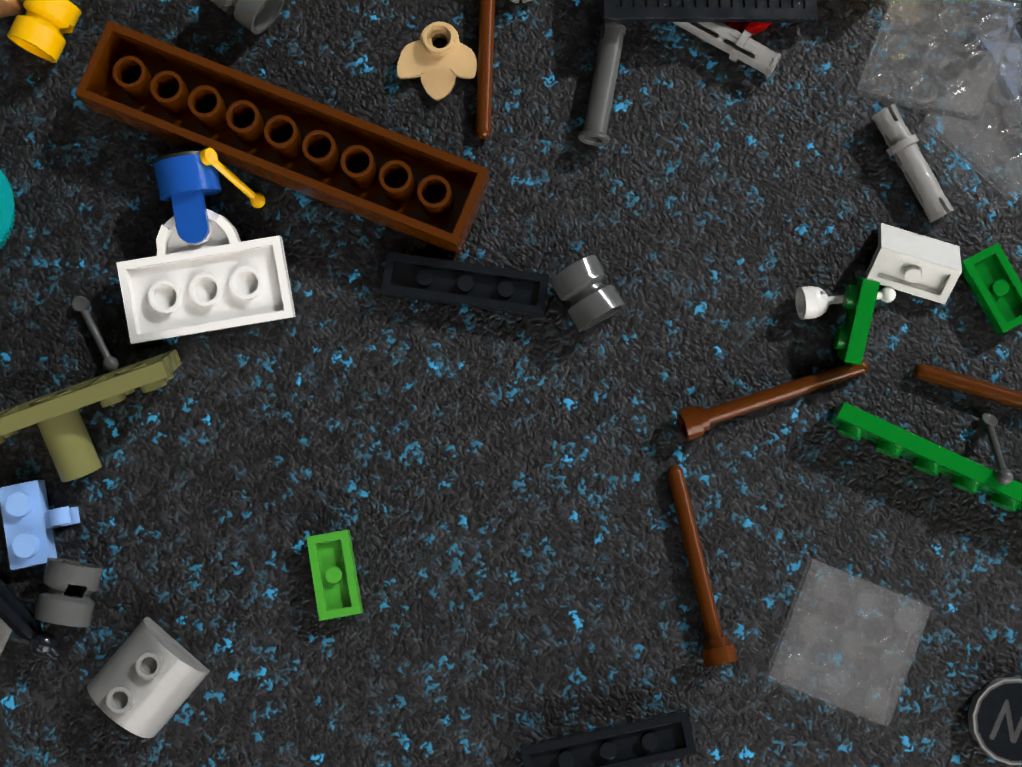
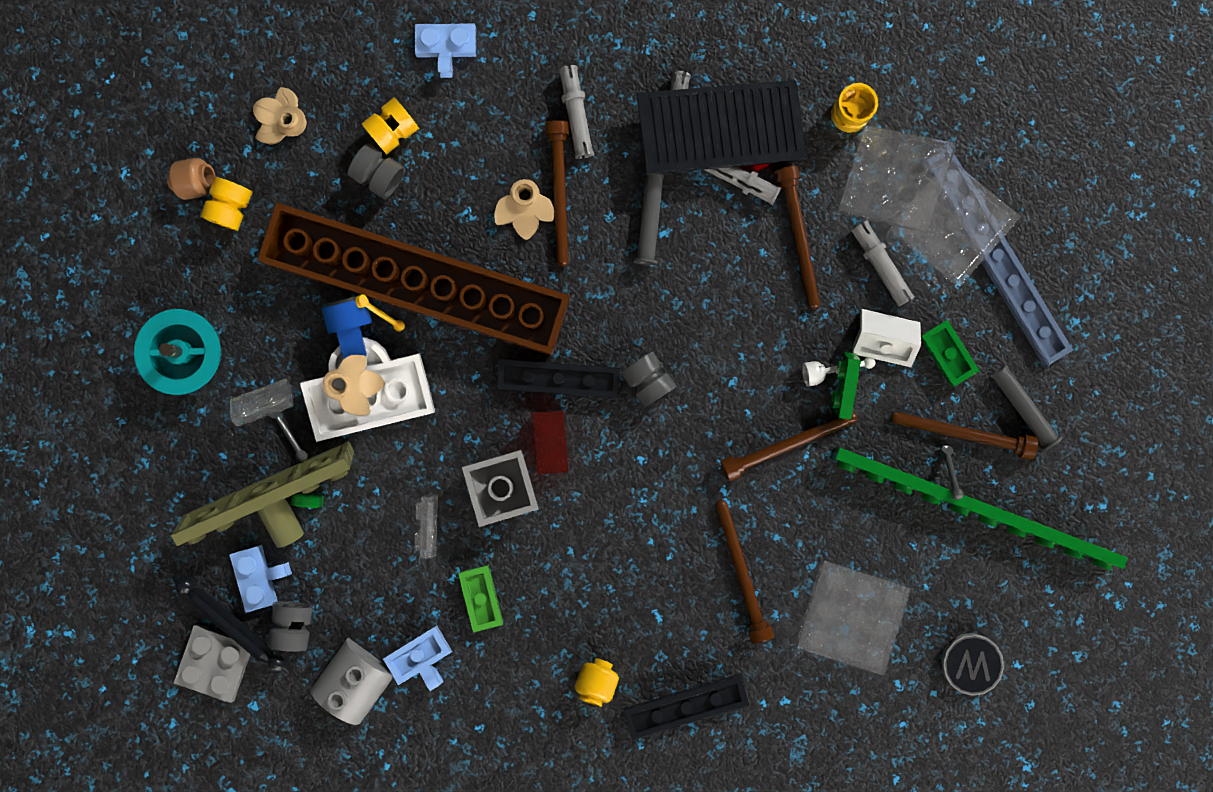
camera: 10 degrees left, 5 degrees up
(63, 287) = (261, 402): none -> clear plate
(110, 421) = (307, 500): none -> green tile
(192, 269) = (357, 384): none -> tan plate
(241, 651) = (418, 658): none -> light blue plate
(271, 453) = (427, 537): none -> clear plate
(373, 422) = (500, 488): none -> light grey brick
(448, 366) = (551, 442): none -> clear red brick
(485, 705) = (596, 682): none -> yellow head
(791, 44) = (788, 180): none -> reddish brown piece

